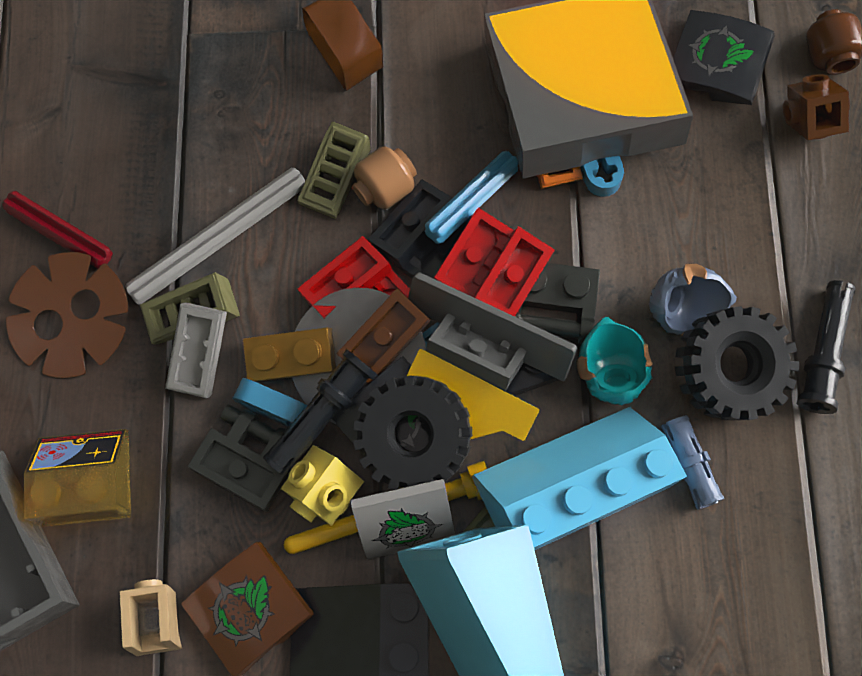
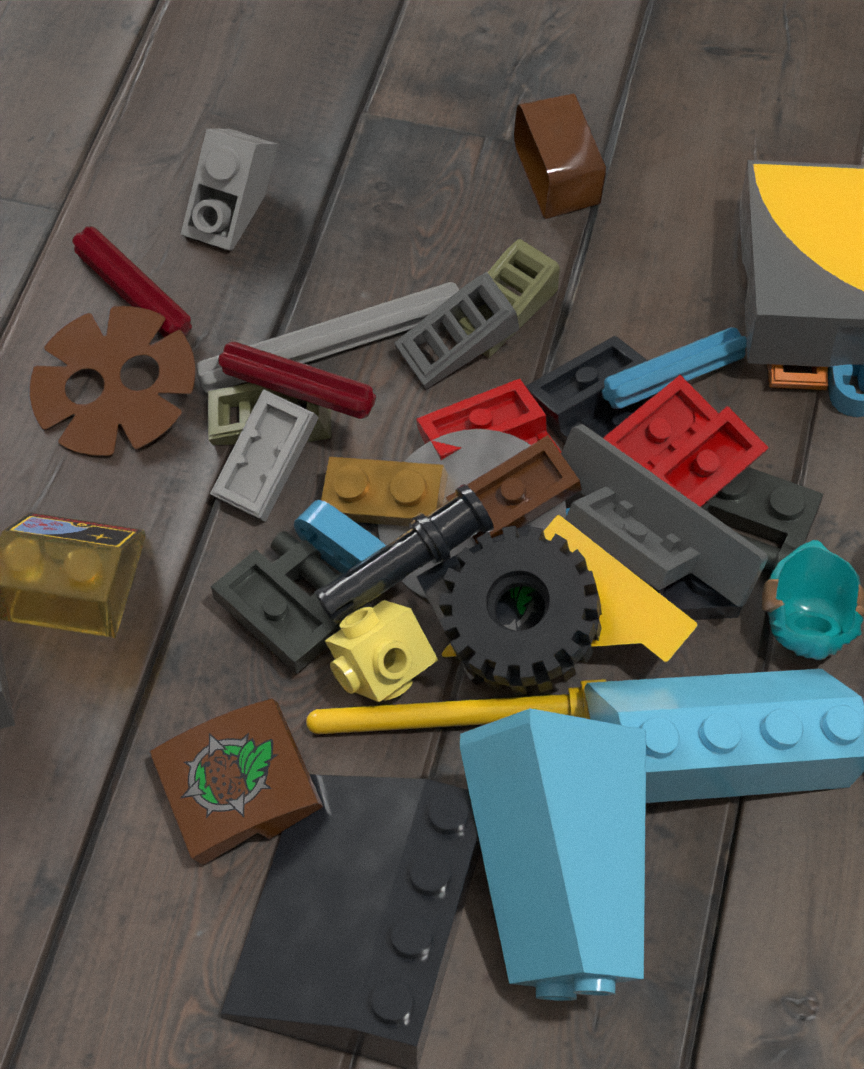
camera: 10 degrees right, 15 degrees down
(105, 129) = (228, 186): none -> light grey slope
(149, 618) = (103, 757): tan window -> none
(202, 287) = (297, 380): none -> dark red axle
(295, 200) = (463, 303): none -> dark grey slope
(384, 177) = (566, 318): medium nougat head -> none
(403, 518) = (467, 693): light grey slope -> none

